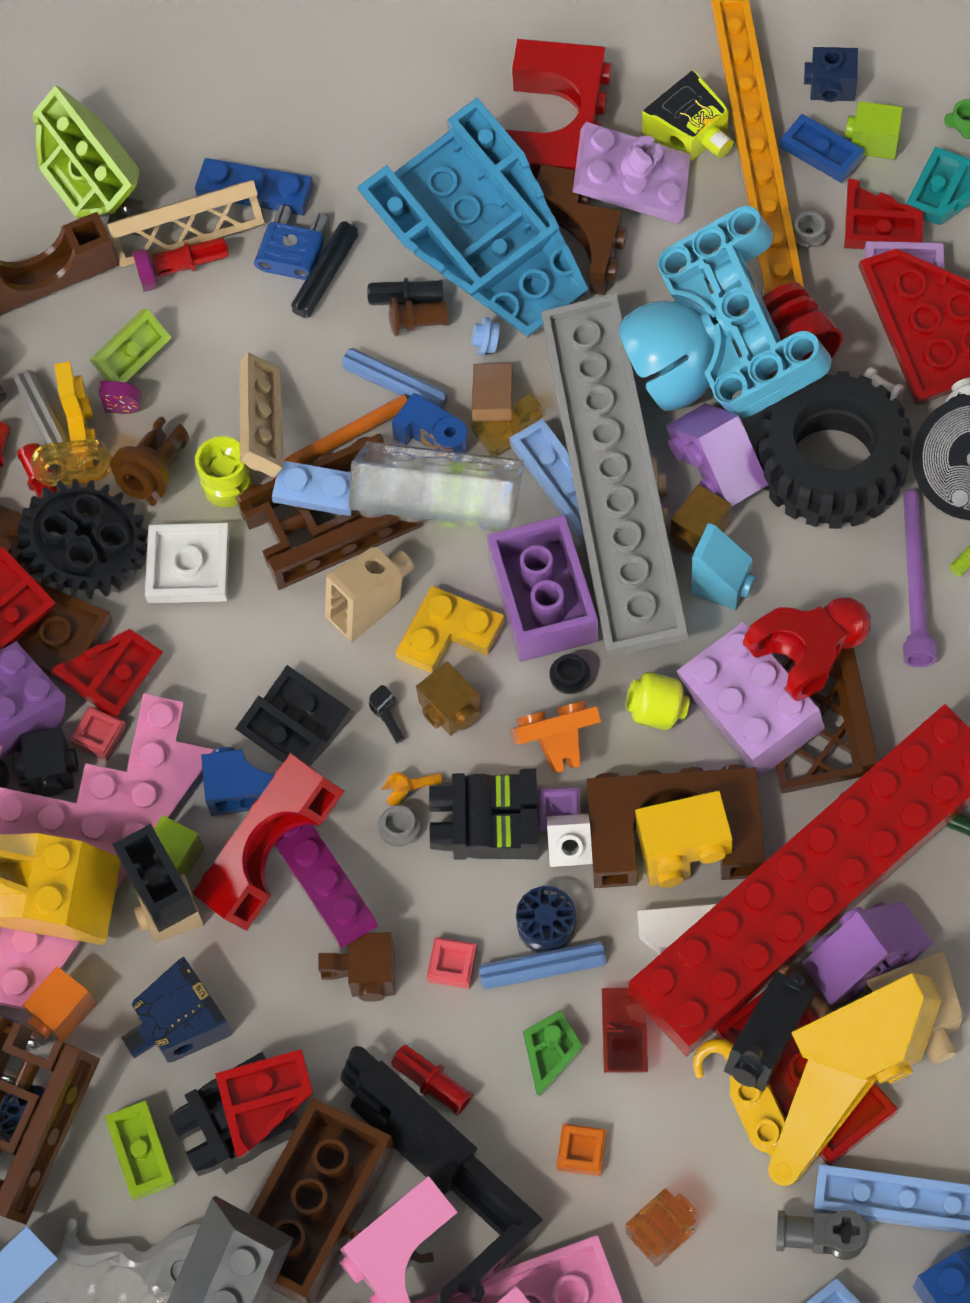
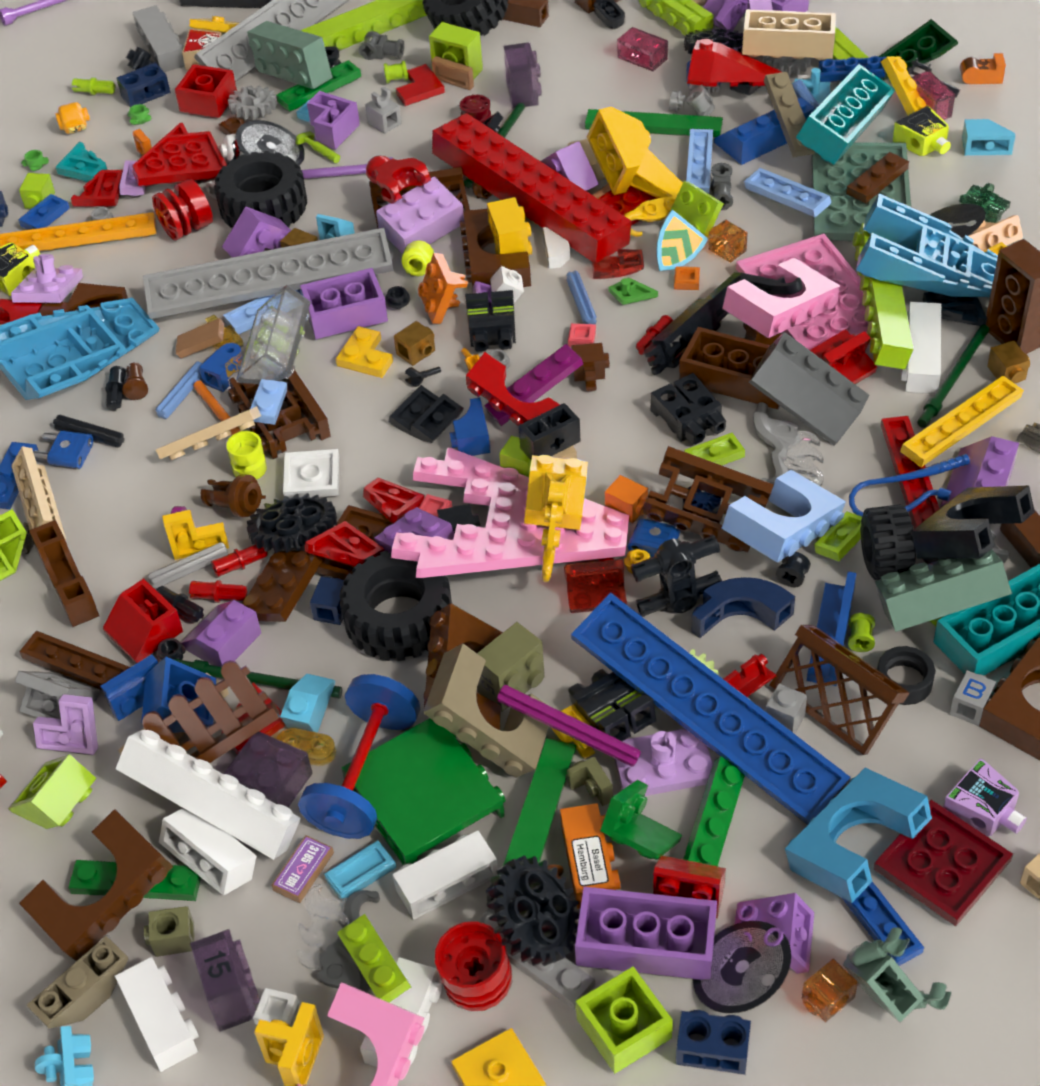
camera: 95 degrees left, 15 degrees down
(72, 458) = (234, 528): clear yellow plate -> none
(130, 347) = (135, 518): lime plate -> none
(145, 269) = (73, 518): magenta tile -> none
(176, 1016) = (627, 443): dark blue torso -> none
(189, 256) = (66, 499): red axle -> none
(262, 1097) = (682, 381): red wing -> none
(364, 590) = (342, 380): tan torso -> none
(485, 336) = (156, 347): light blue plate -> none
(545, 920) = (554, 297): dark blue wheel -> none
(652, 1133) = (677, 242): none -> shield
(694, 337) = (181, 230): medium azure beam -> none
(721, 1168) = (697, 207): none -> lime plate
(769, 1030) = (622, 193): black brick -> none

